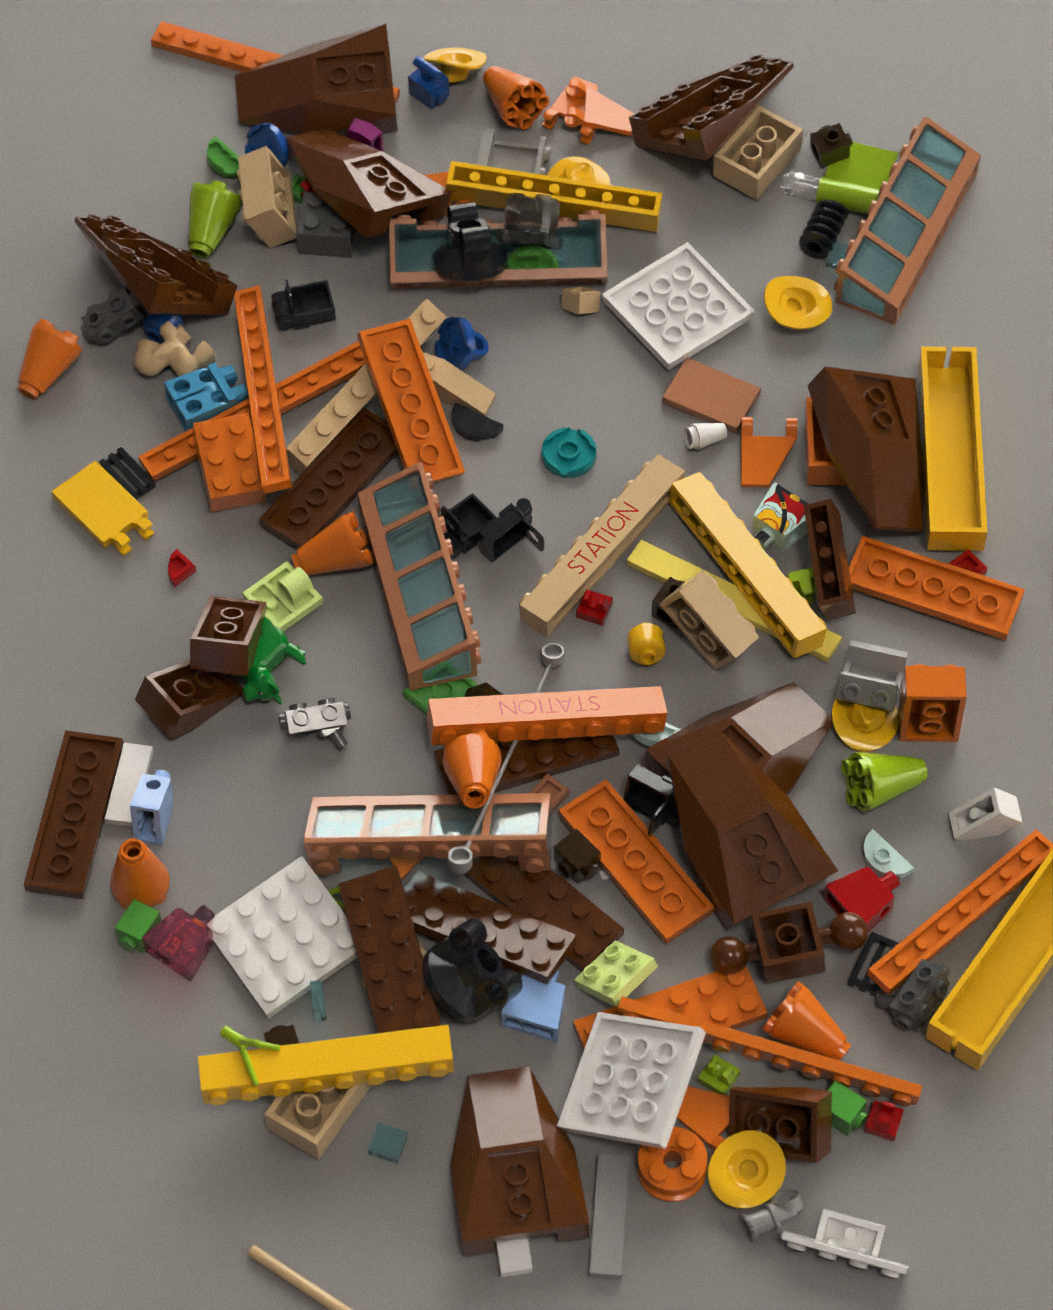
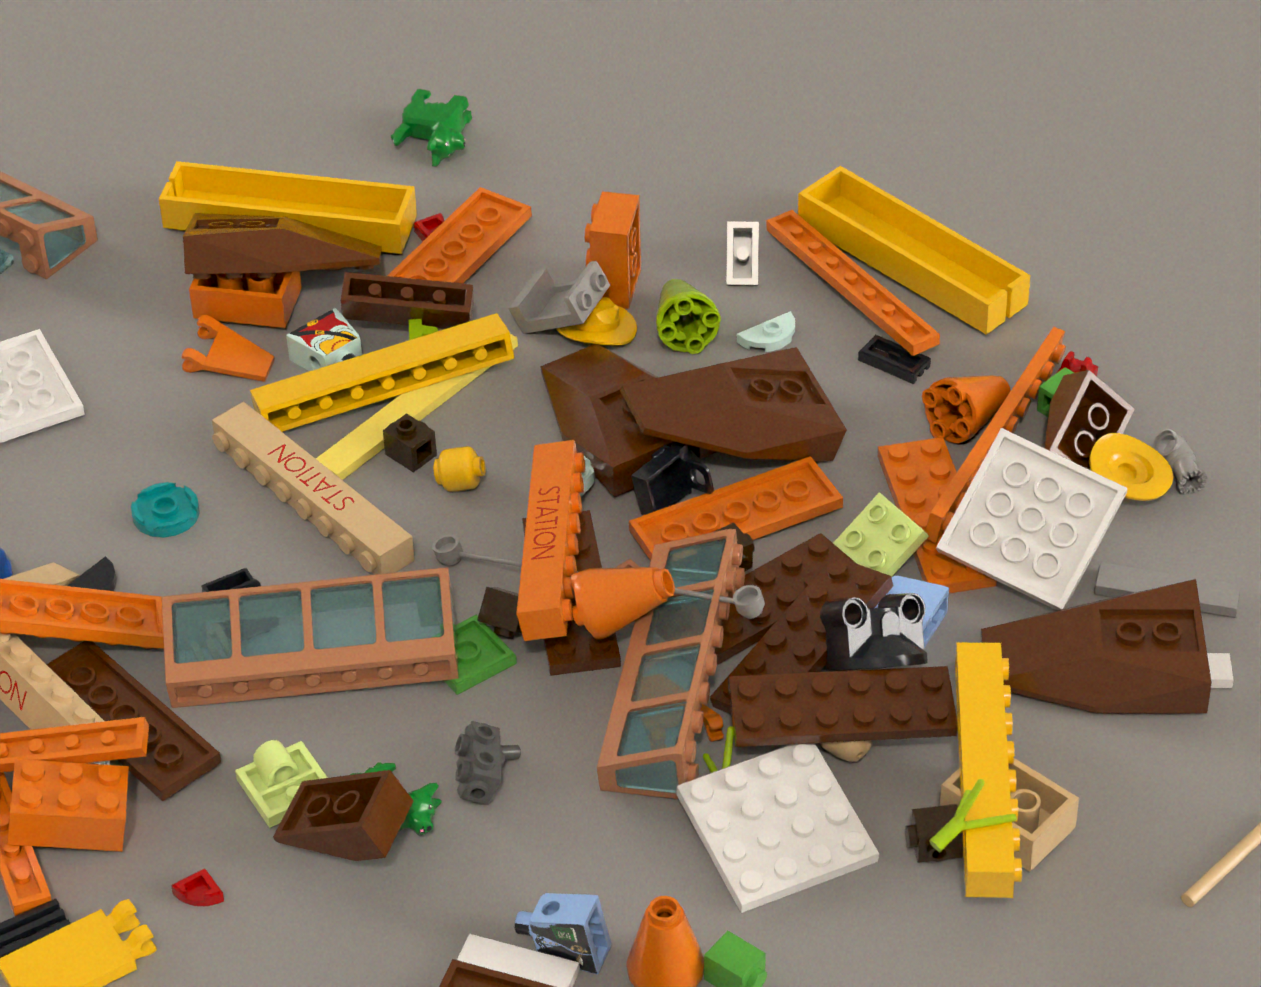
camera: 80 degrees left, 15 degrees down
(181, 940) = (767, 920): clear pink torso -> none
(185, 697) = (406, 890): reddish brown slope -> none
(318, 1001) = (871, 800): clear light blue tile -> none
(335, 548) = (236, 712): orange cone -> none
(388, 1143) = (1060, 763): clear light blue tile -> none
(508, 530) = (263, 555): black piece -> none
(594, 607) = (394, 506): red tile -> none
(679, 1182) = (1129, 533): orange wheel -> none
(704, 434) = (190, 394): white cone -> none
(709, 620) = (461, 394): tan brick -> none
(711, 395) = (134, 384): nougat tile -> none
(788, 942) = (871, 401): reddish brown brick -> none
(797, 302) = (46, 294): yellow hat -> none
(848, 1238) = (1212, 410): white bracket -> none
(863, 894) = (827, 348): red torso -> none
(918, 995) = (954, 325): dark grey brick -> none

